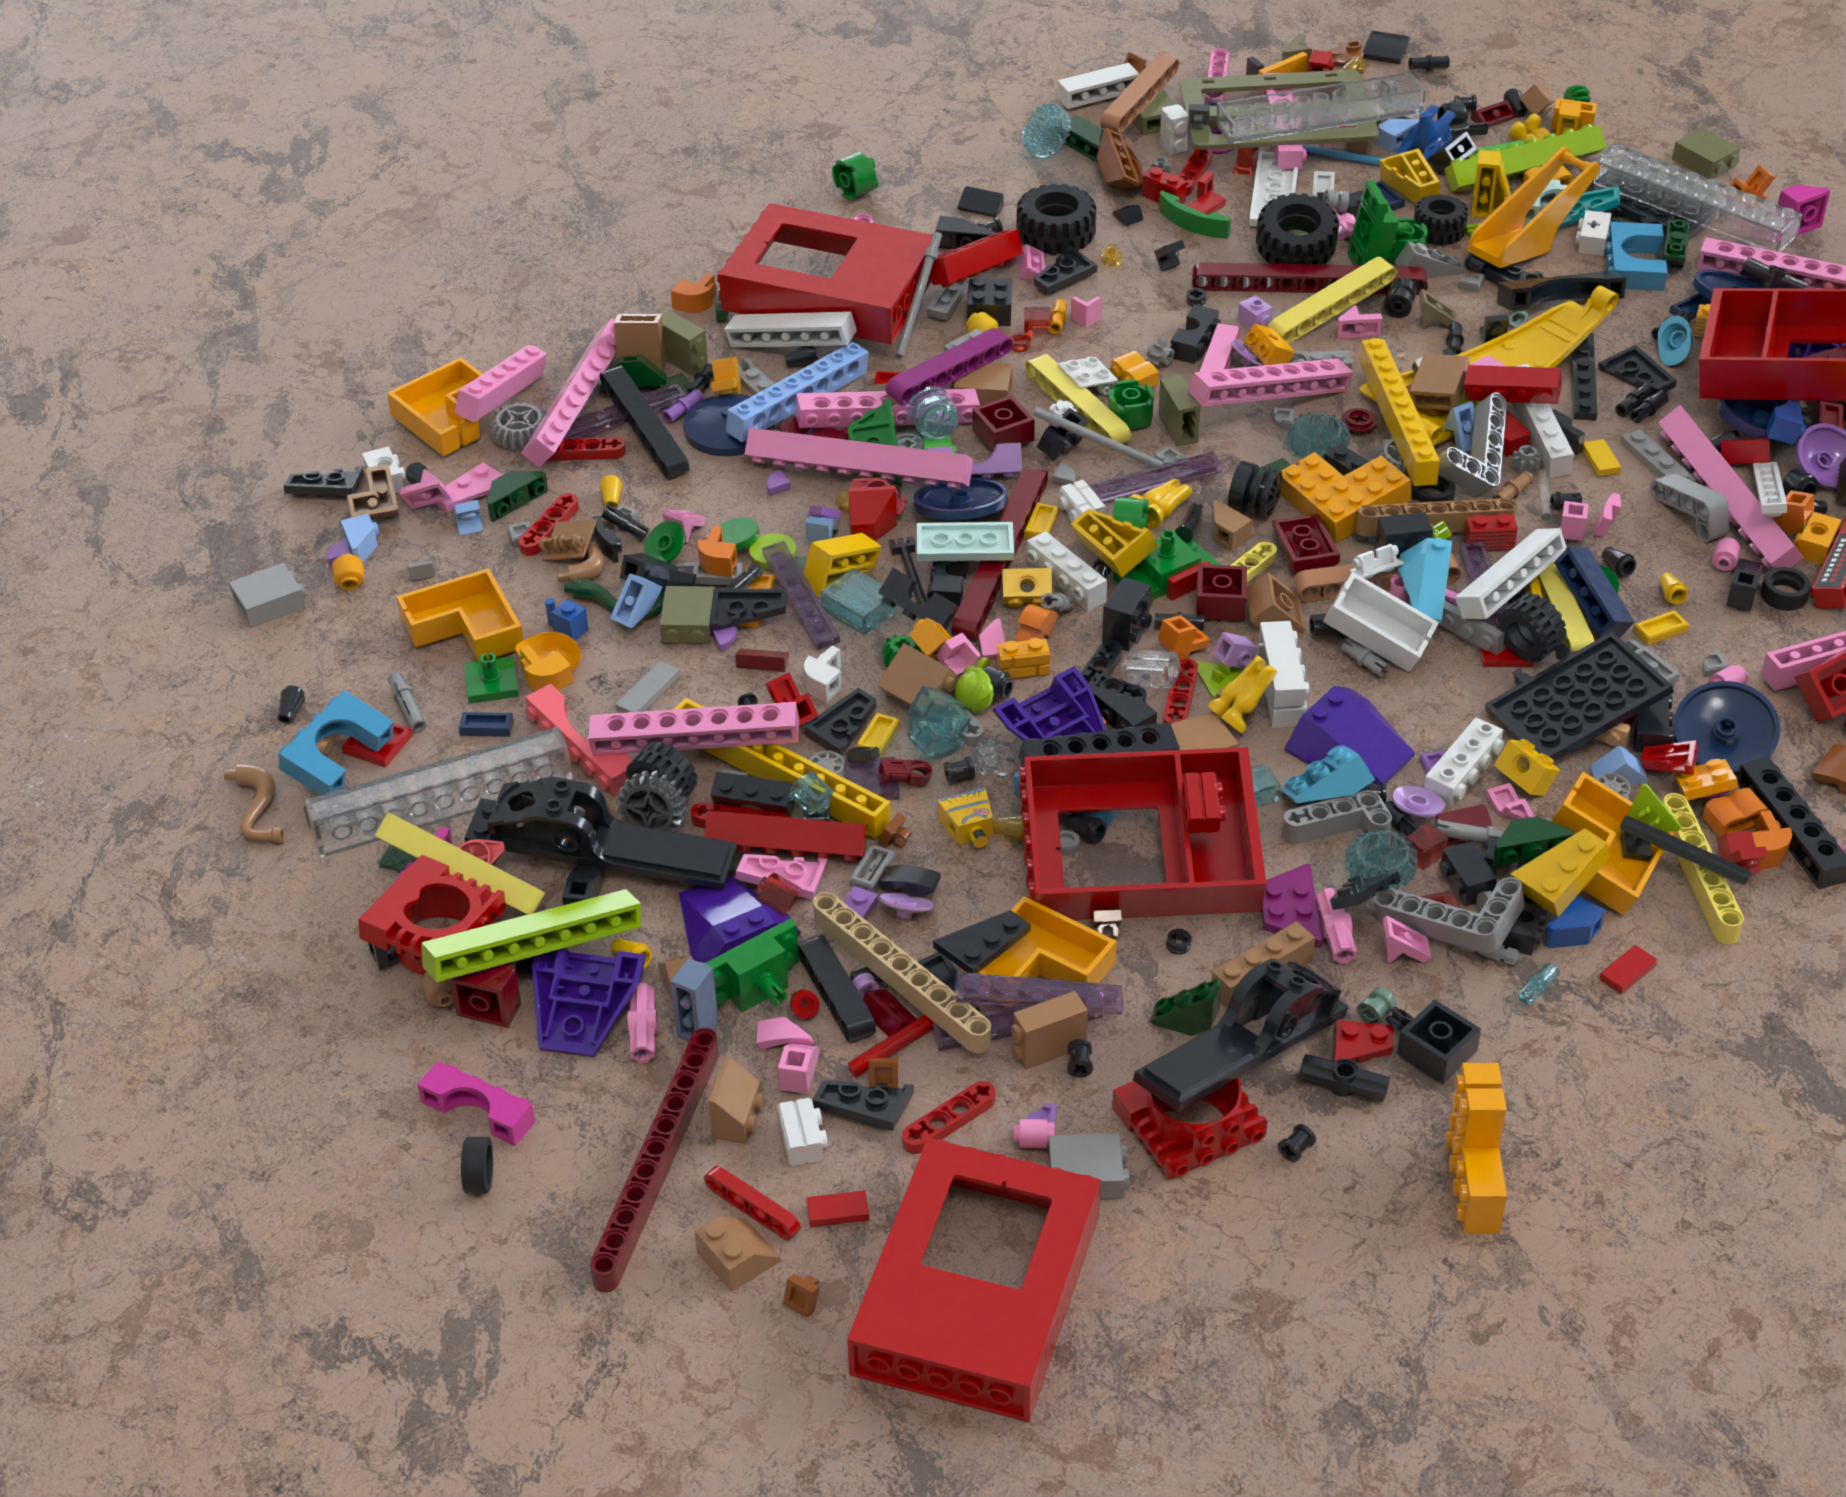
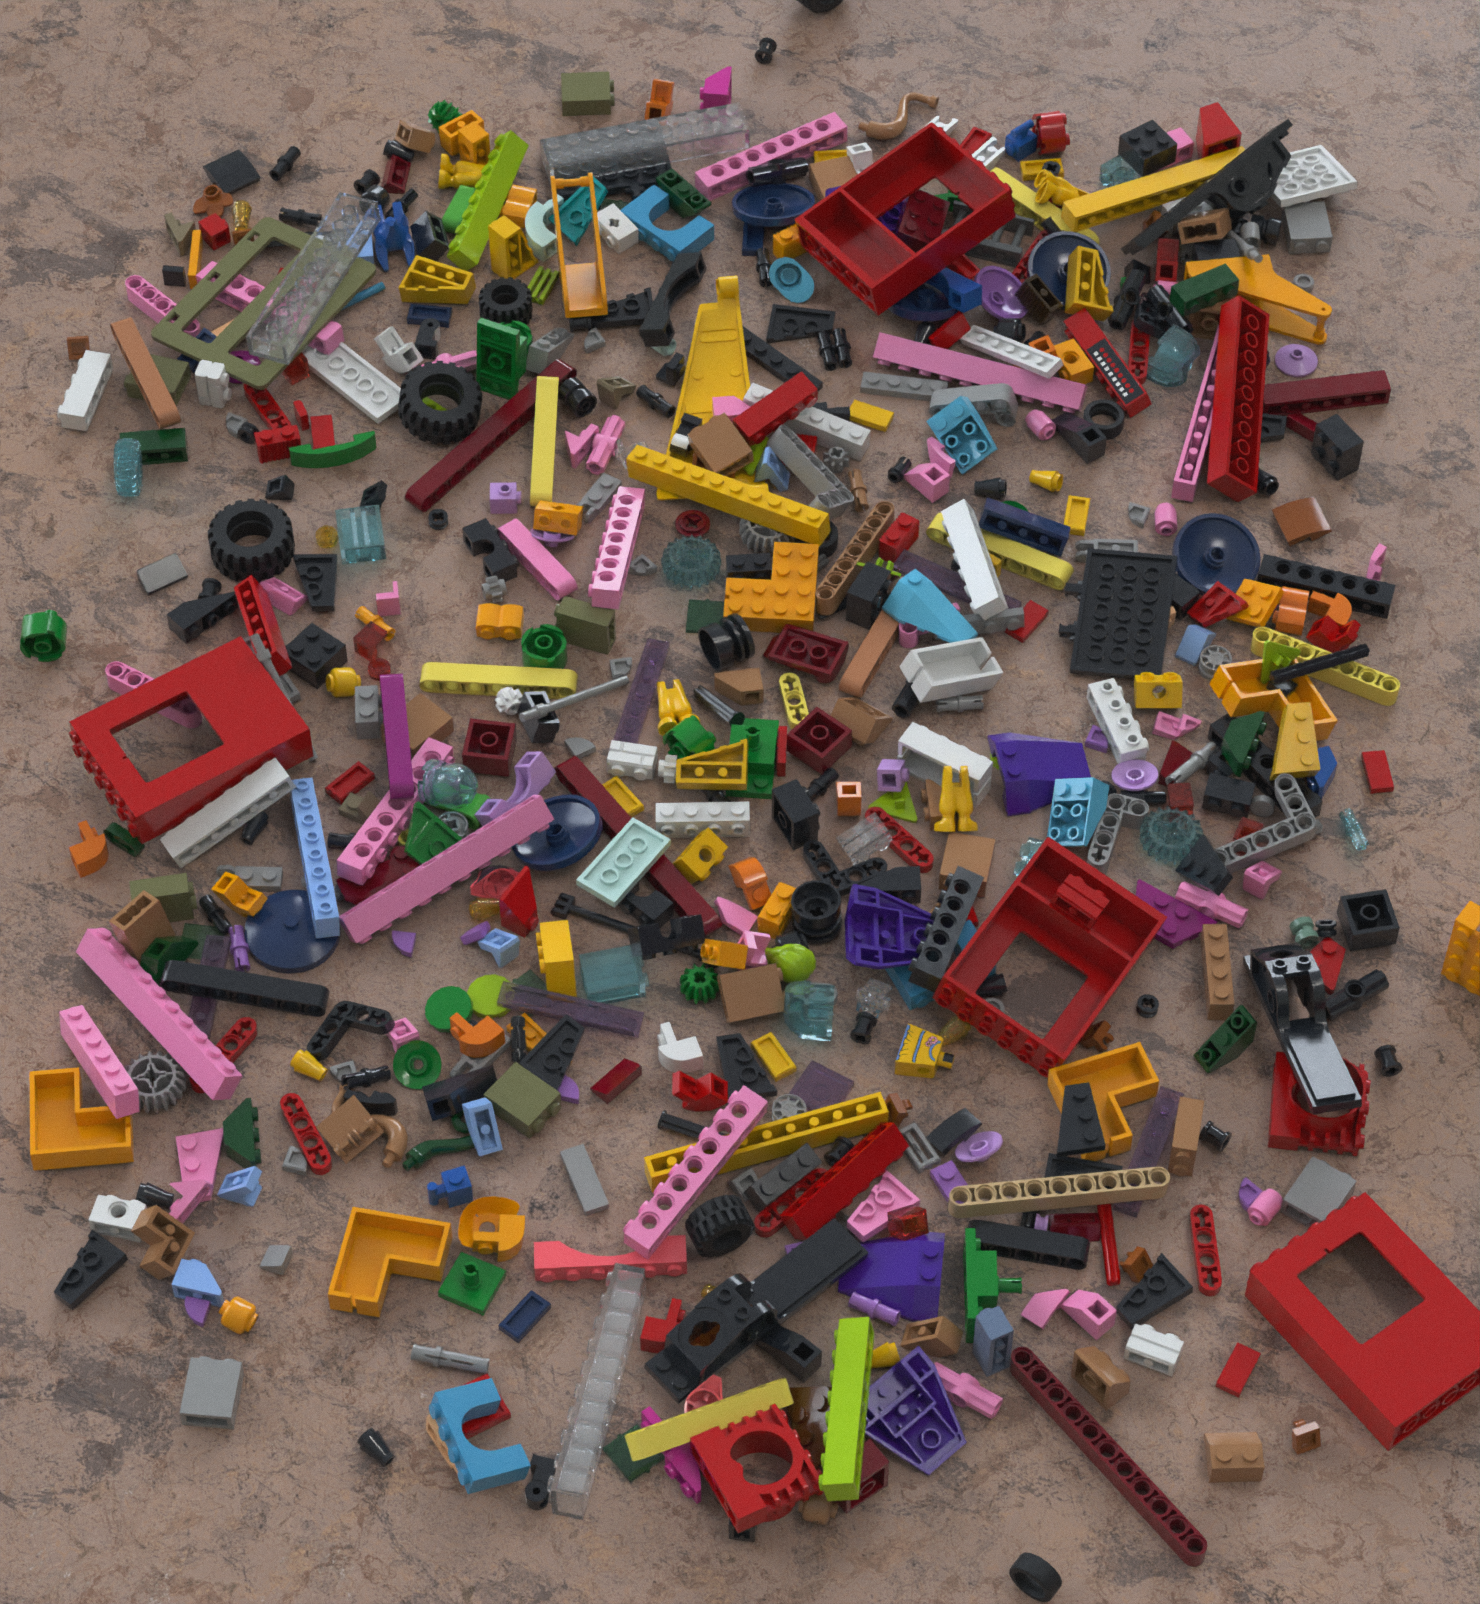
camera: 55 degrees left, 10 degrees up
(265, 788) = (465, 1516): medium nougat animal -> none
(449, 1088) = (989, 1532): dark pink arch -> none
(660, 800) = (749, 1248): dark grey gear -> none
(675, 487) = (346, 1015): none -> black beam
(677, 923) = (874, 1309): none -> medium lavender pin
(752, 1203) = (1196, 1419): red beam -> none
(808, 1007) = (1029, 1272): red tile -> none
(811, 793) = (830, 1137): clear light blue brick -> none
(862, 753) = (793, 1078): black tile -> none
(901, 771) = (837, 1065): dark red piece -> none
(1032, 991) = (1151, 1121): clear purple plate -> none
(1036, 669) = (817, 911): none -> black wheel
(1057, 602) = (737, 851): light grey pin -> none
(1089, 373) = (477, 651): white hinge -> none
(1118, 162) = (215, 451): dark orange wedge -> none
(1130, 267) = (360, 534): none -> clear light blue brick
(1199, 115) = (232, 358): dark grey tile -> none
(1337, 200) = (426, 351): light grey wheel -> none
(1385, 561) = (885, 628): white hinge -> none
(1394, 333) = (605, 444): none -> bright pink piece
(1532, 627) = (1038, 588): black tyre -> none
(1544, 495) = (878, 477): clear bar -> none
(1647, 505) = (962, 433): none -> medium azure slope

